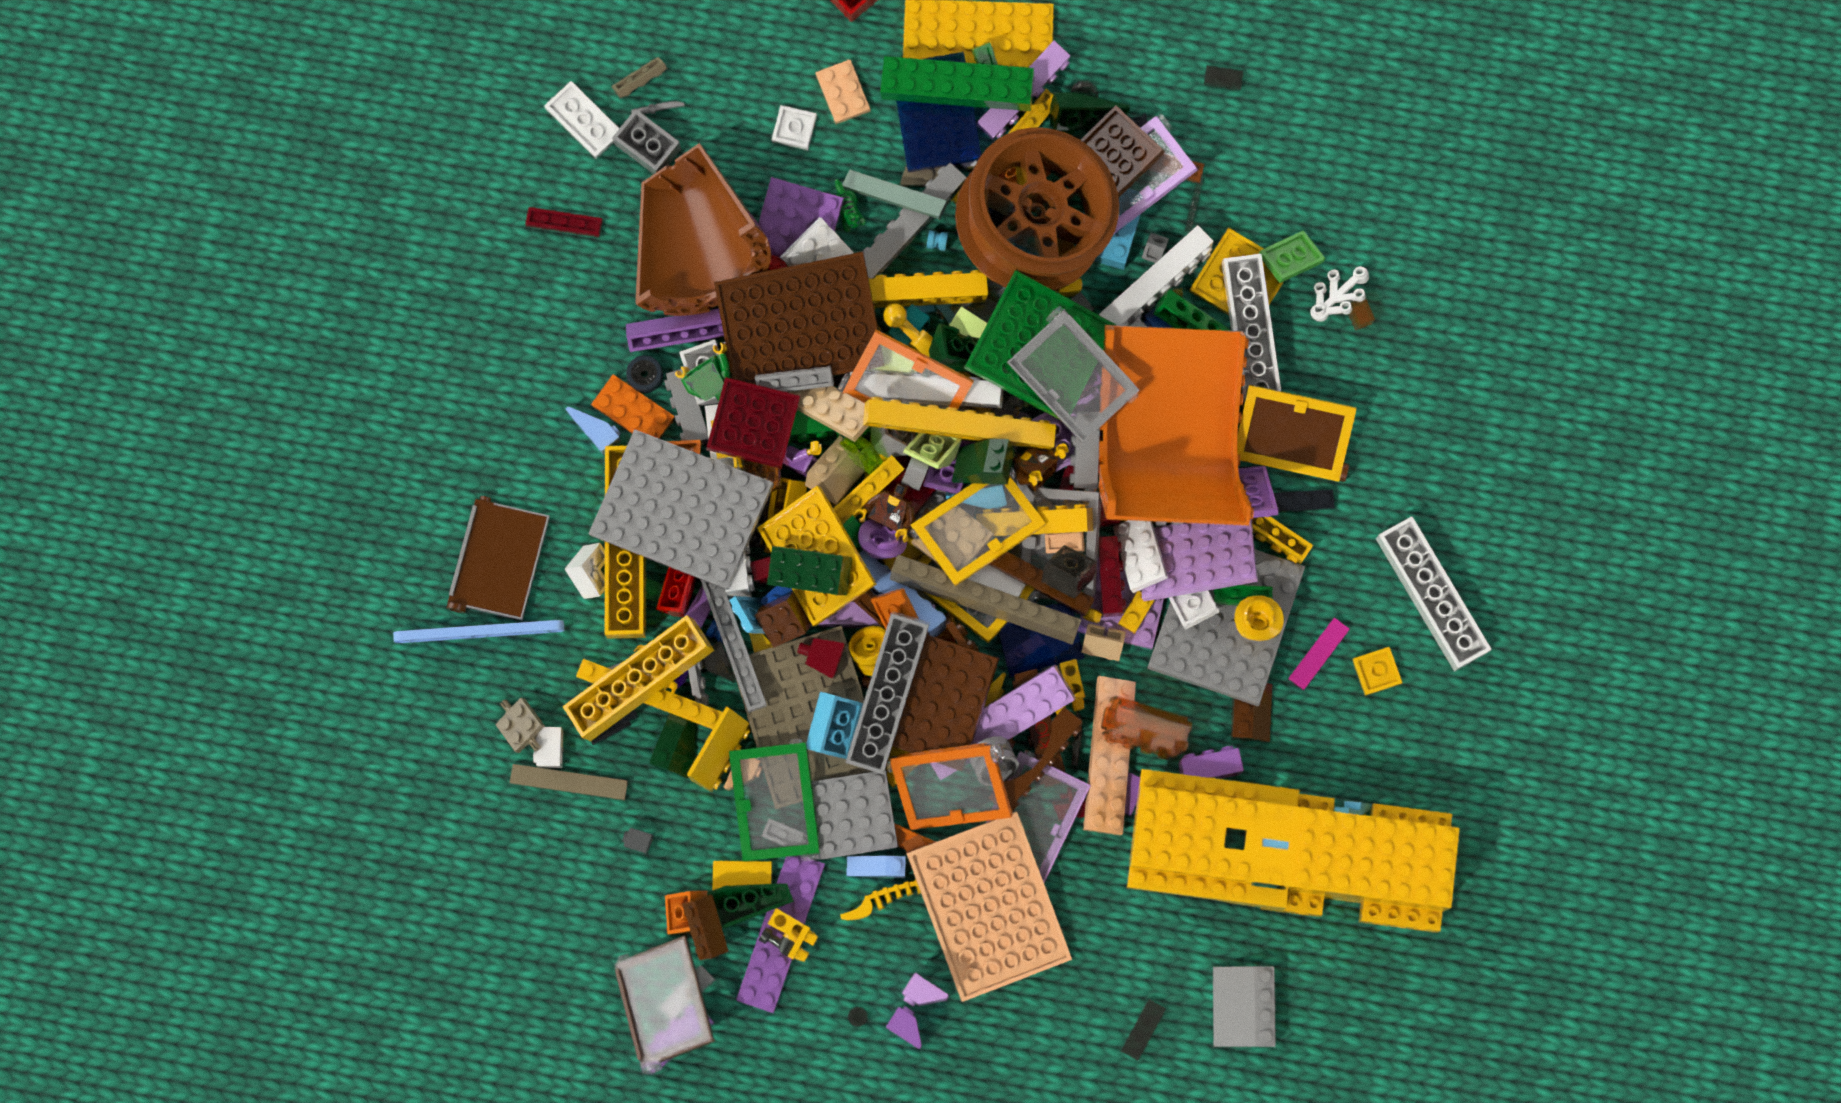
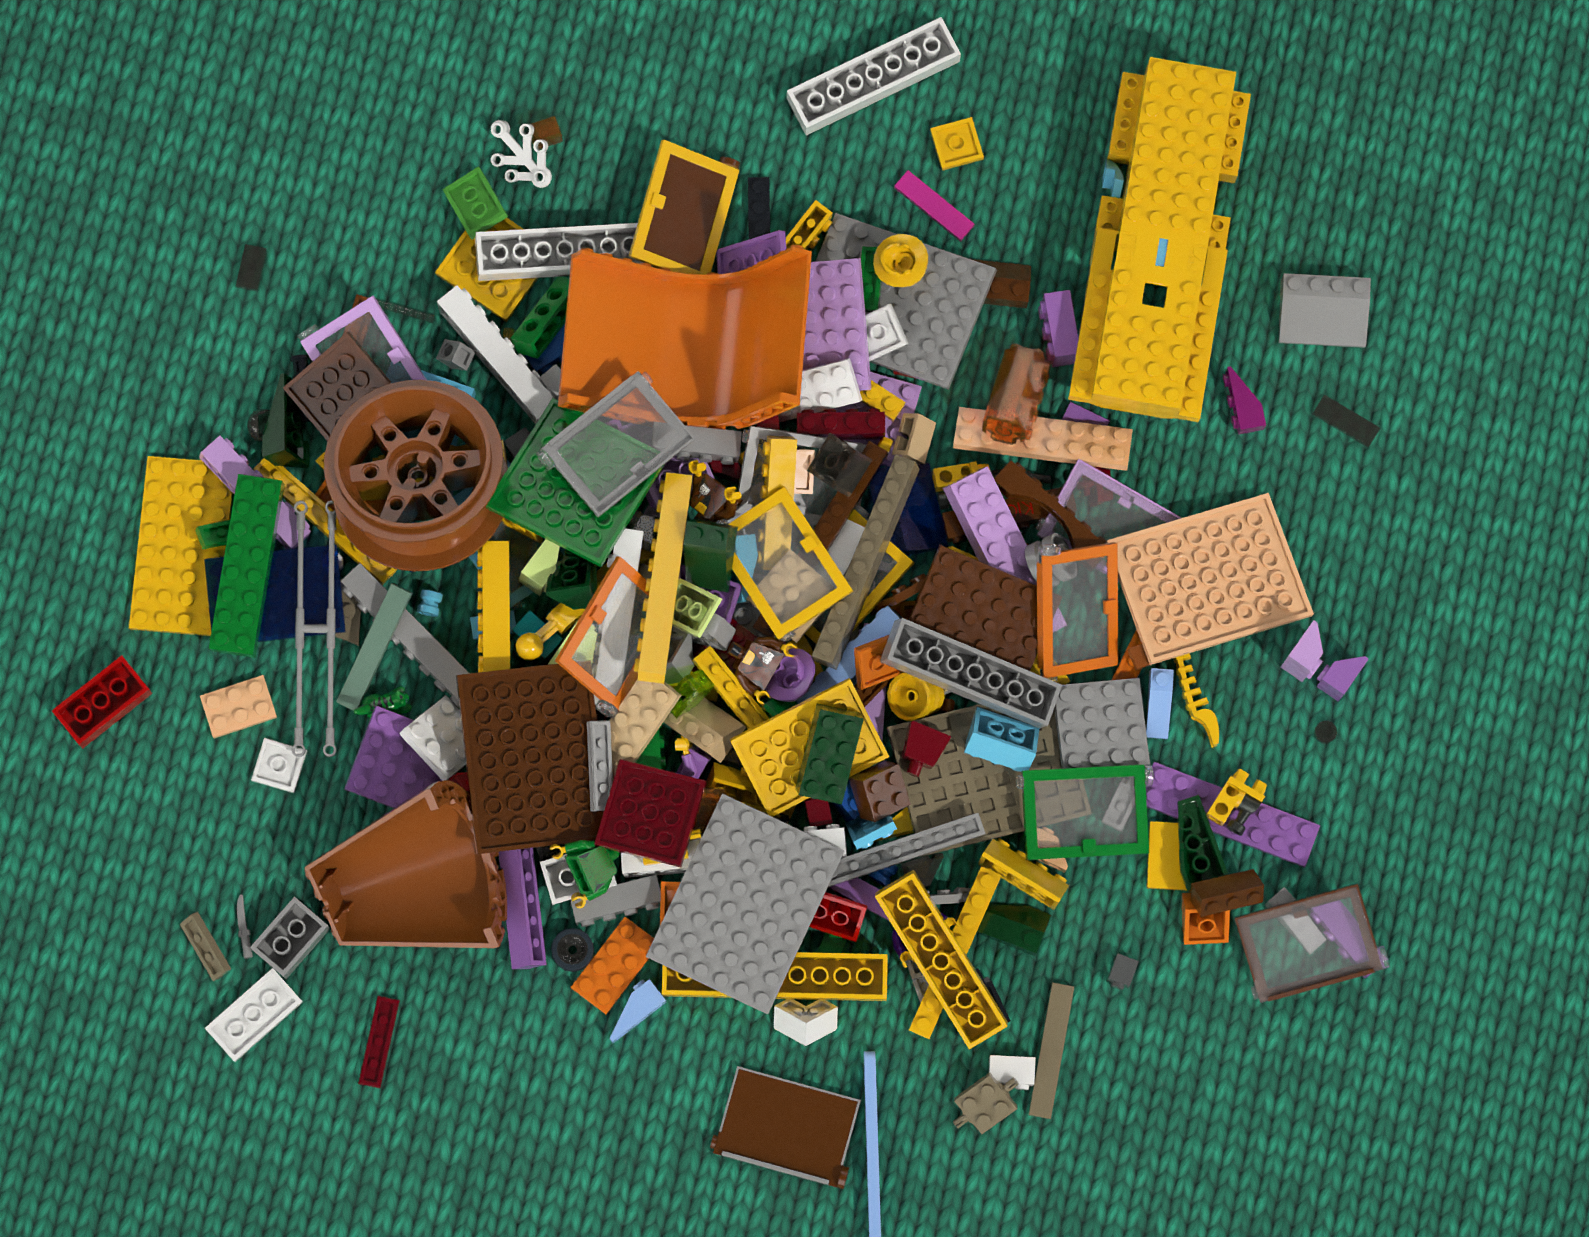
camera: 95 degrees left, 0 degrees up
(907, 134) = (301, 628): none -> light grey bar
(1147, 938) = (1246, 407): none -> magenta slope

